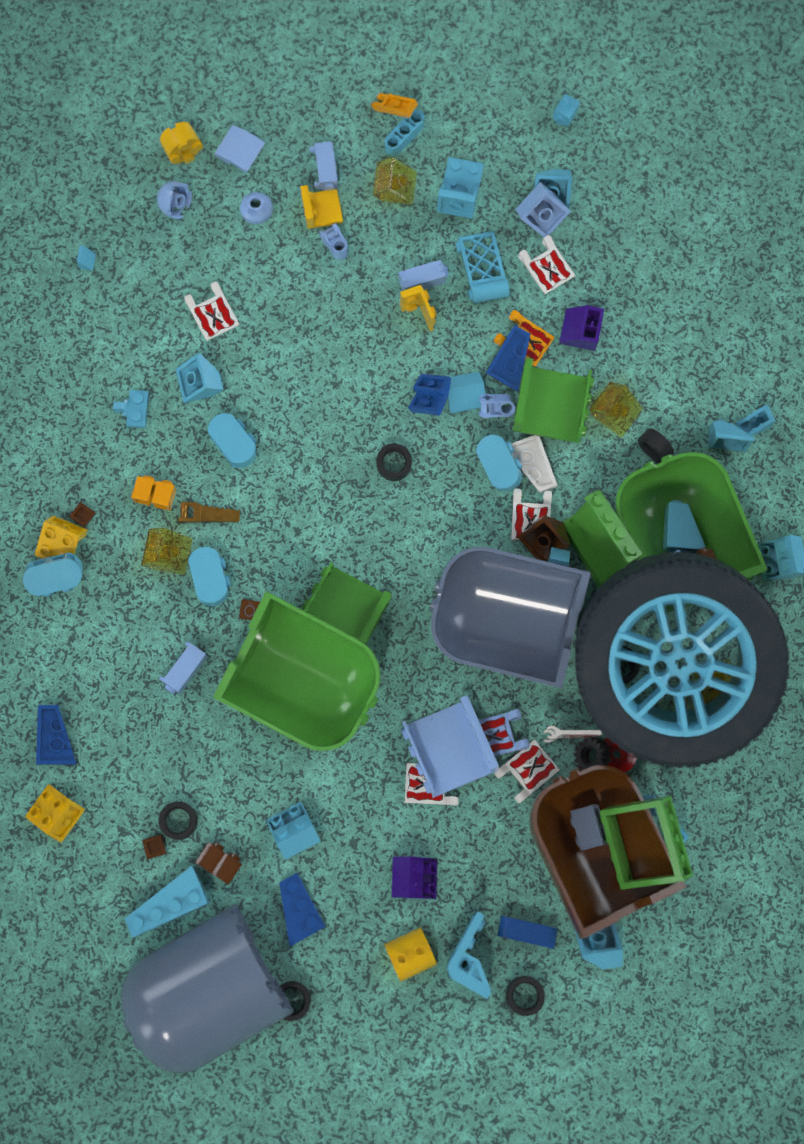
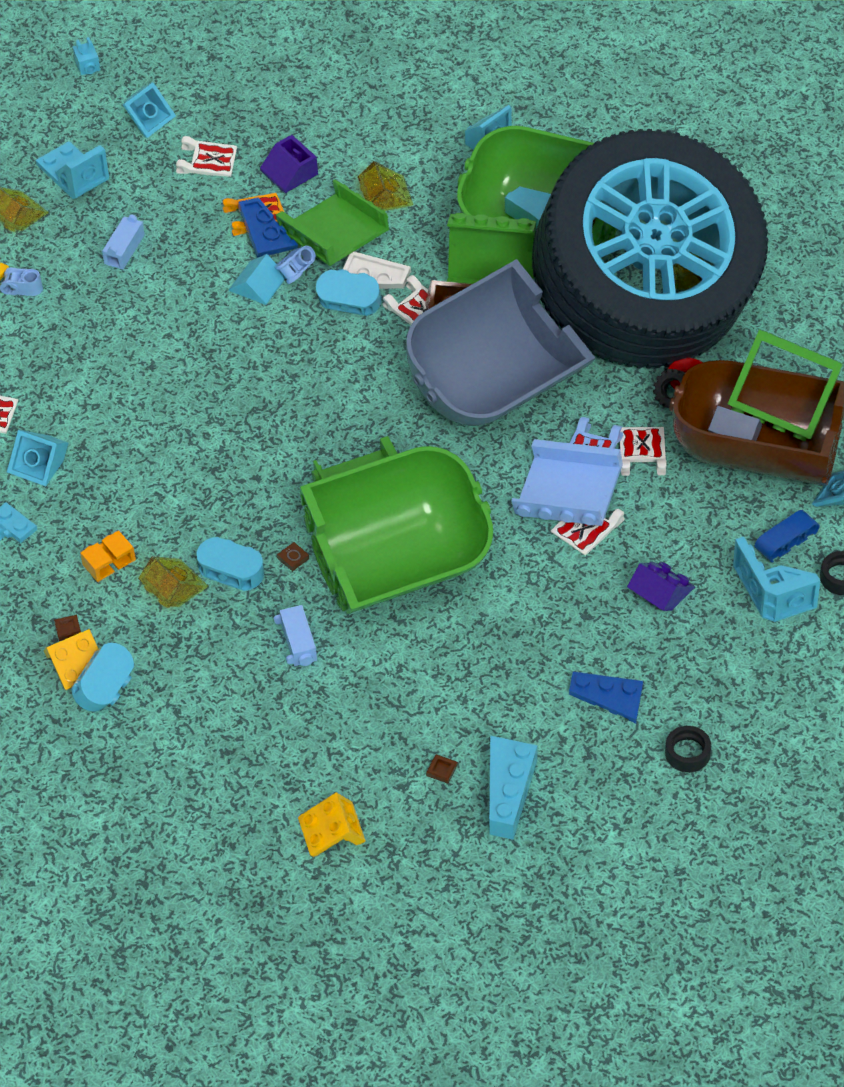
camera: 45 degrees left, 25 degrees down
(52, 739) = (258, 785): blue wing -> none
(163, 820) = (431, 746): black tyre -> none
(201, 995) = (619, 800): sand blue cylinder -> none
(207, 514) = (169, 532): pearl gold piece -> none
(218, 862) = (507, 722): reddish brown brick -> none
(232, 440) = (122, 467): medium azure brick -> none
(293, 830) = (531, 647): medium azure slope -> none
(394, 448) = (272, 378): black tyre -> none
(410, 954) = (728, 631): yellow brick -> none
(415, 297) = (151, 252): yellow bracket -> none
(430, 394) = (236, 299): blue slope -> none
(489, 288) = (181, 207): medium azure piece -> none
(542, 210) = (157, 123): light blue slope -> none
(570, 734) = (640, 389): white flag -> none
(655, 445) = (441, 170): black tyre -> none
(757, 421) = (495, 99): medium azure slope -> none

